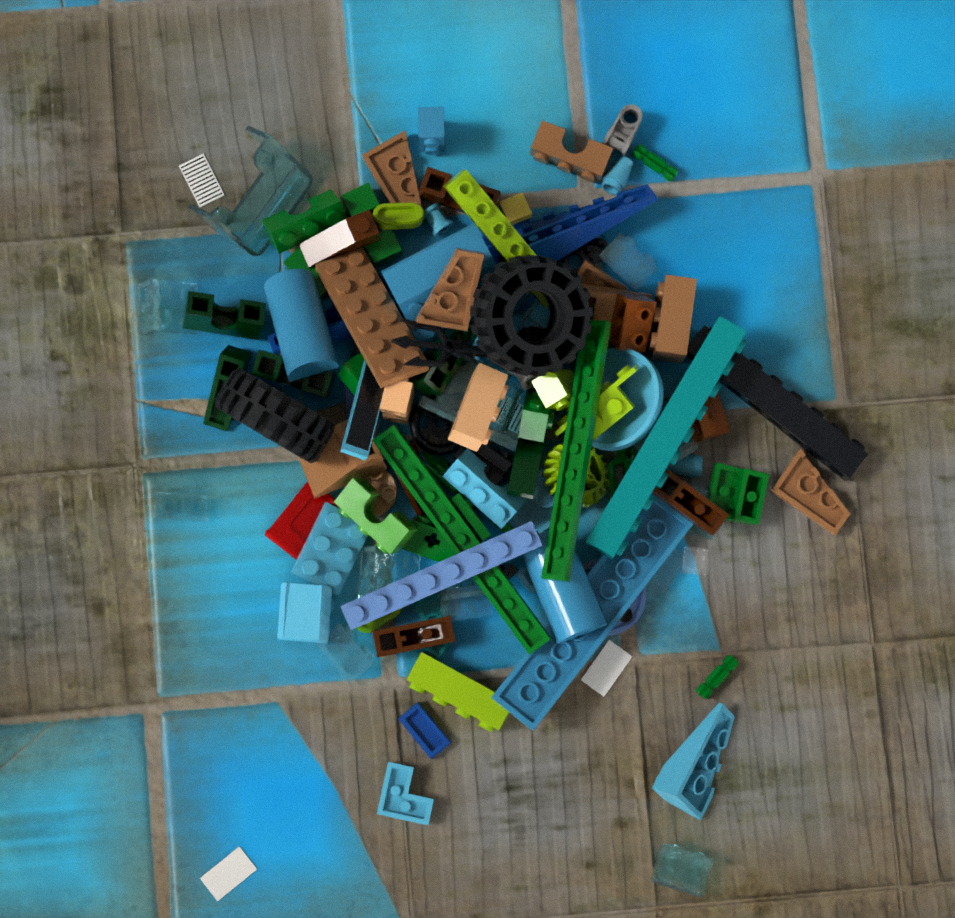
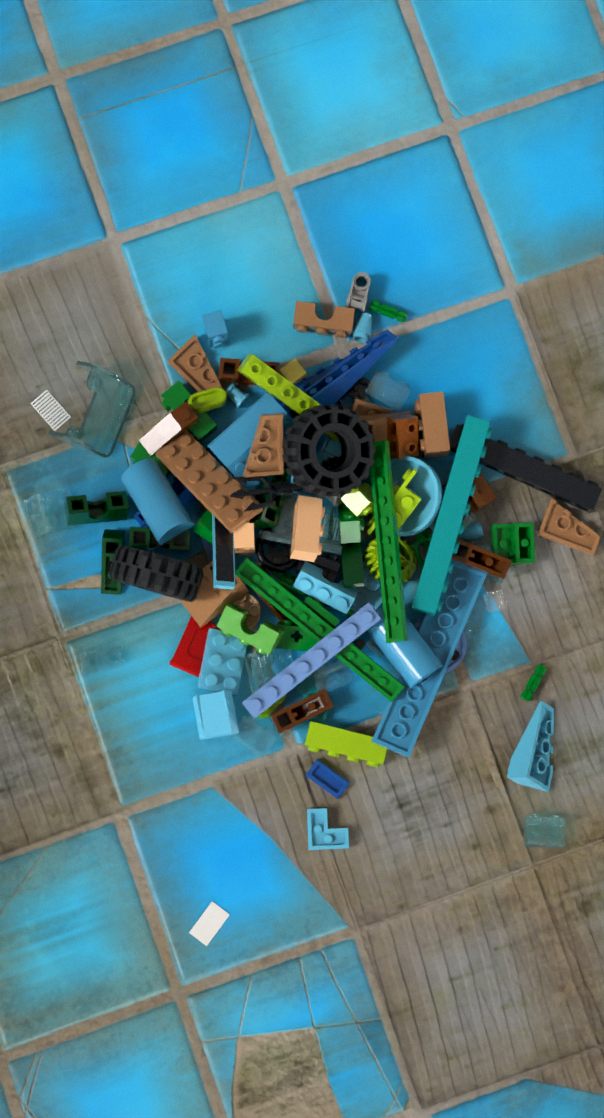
camera: 20 degrees left, 0 degrees up
(290, 230) = (128, 432): green arch -> none
(606, 668) = (450, 697): white sticker -> none

